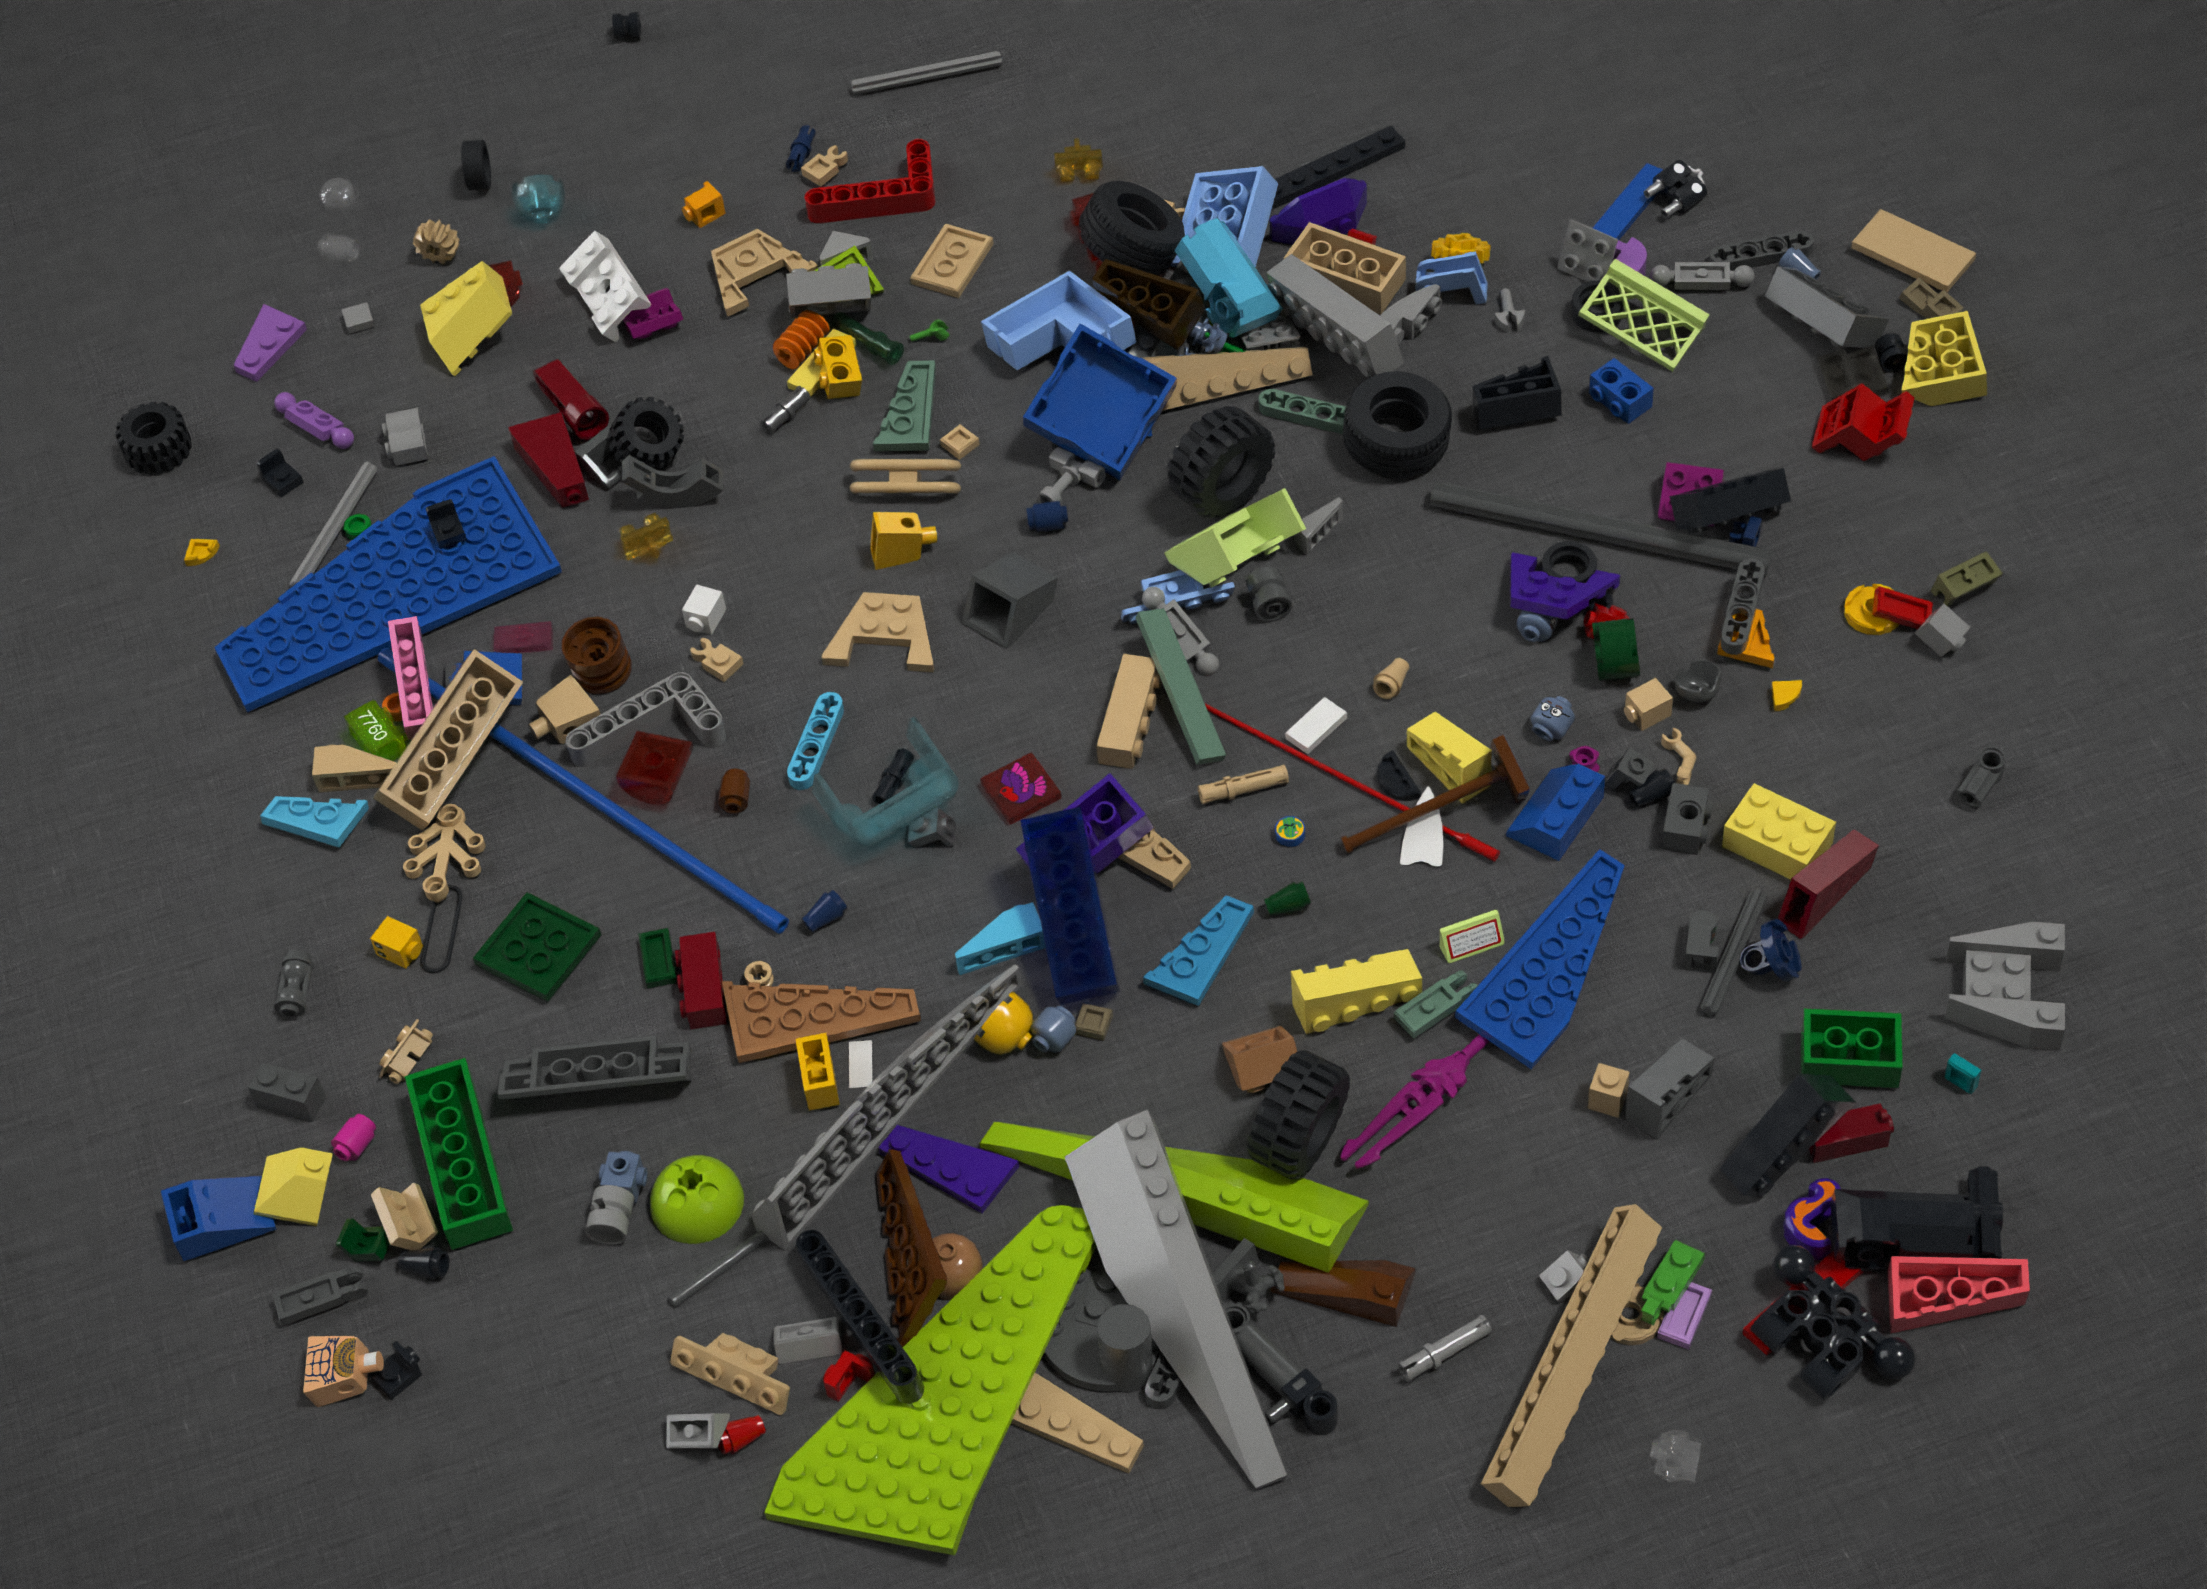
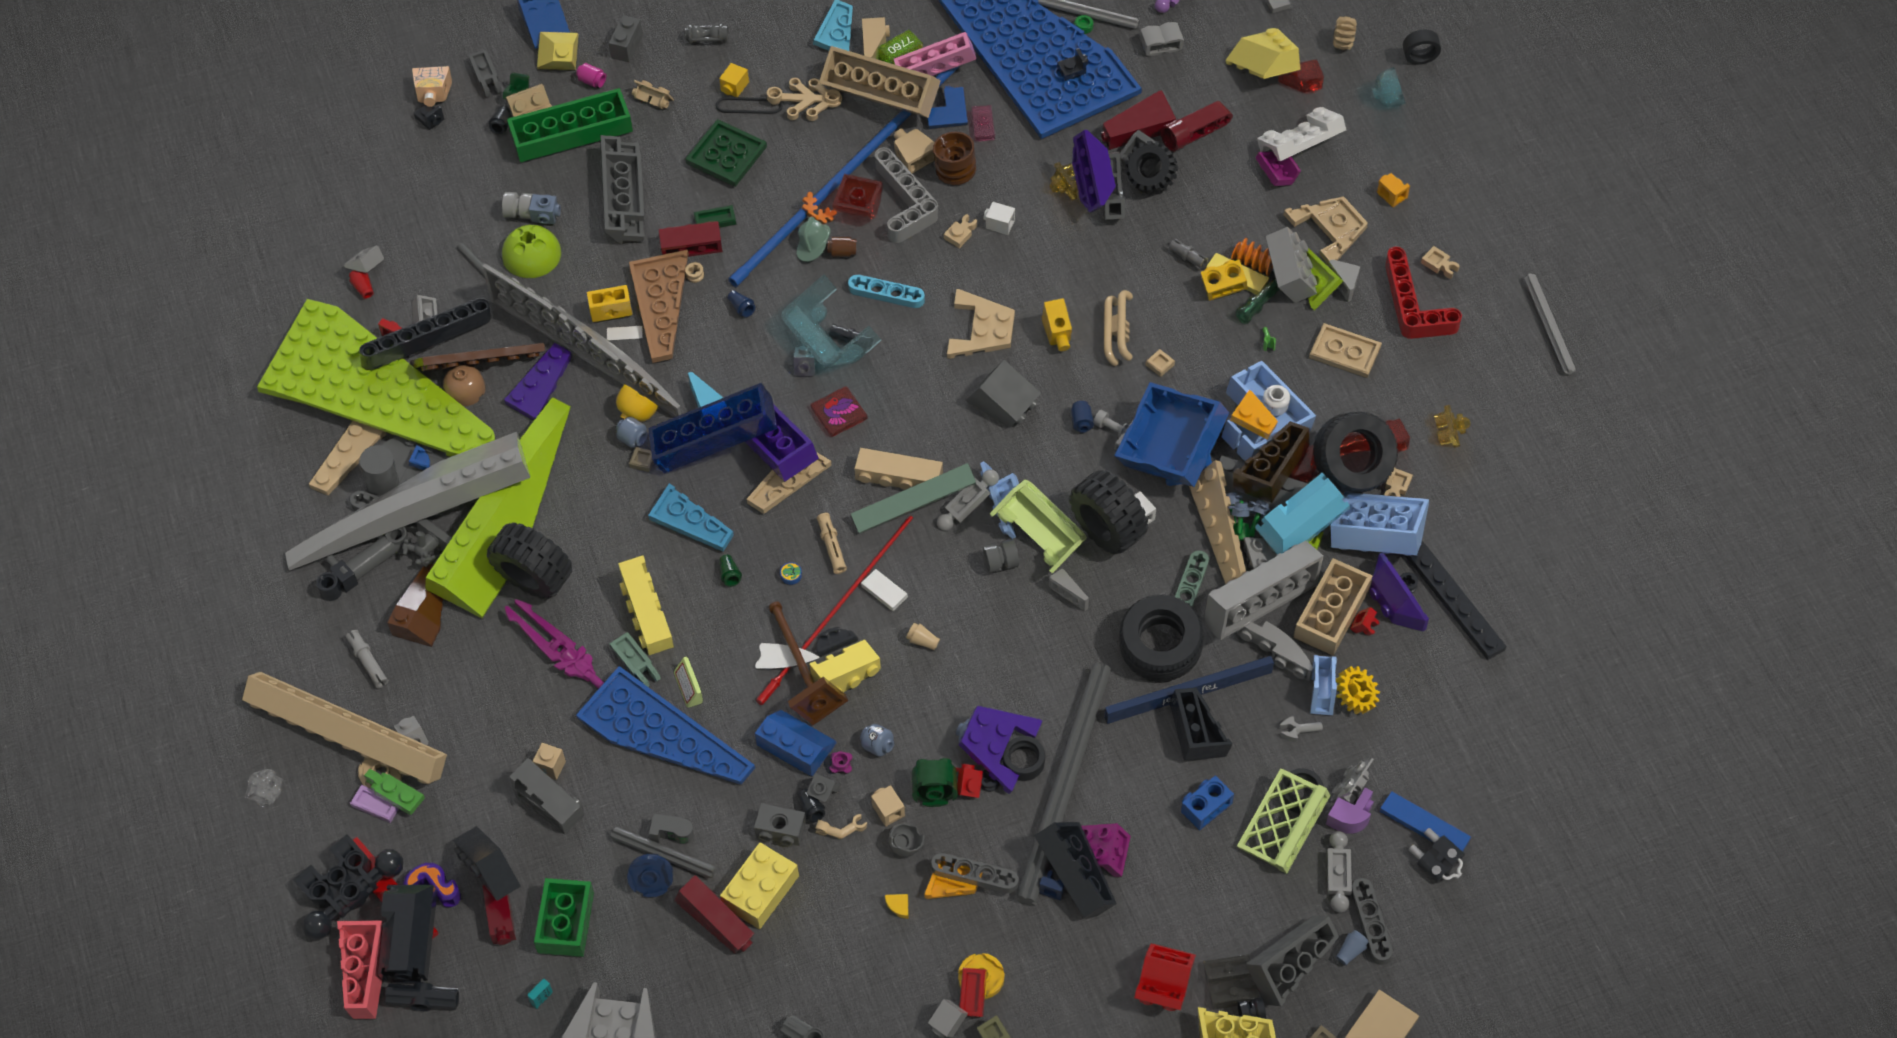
camera: 85 degrees right, 5 degrees up
(626, 25) = (1585, 126): black wheel -> none
(661, 488) = (1092, 171): none -> dark purple wedge
(668, 827) = (809, 200): none -> orange animal
(719, 830) = (813, 239): none -> sand green piece
(734, 1368) = (410, 279): tan bracket -> none
(800, 148) = (1458, 246): dark blue pin -> none
(910, 411) = (1177, 329): sand green wing -> none
(1042, 305) = (1276, 399): none -> white head
(1086, 310) = (1254, 416): none -> light orange wing
(1092, 1304) = (419, 458): none -> blue tile
(1258, 1057) = (598, 552): medium nougat slope -> none
(1463, 408) = (1204, 685): none -> dark blue tile

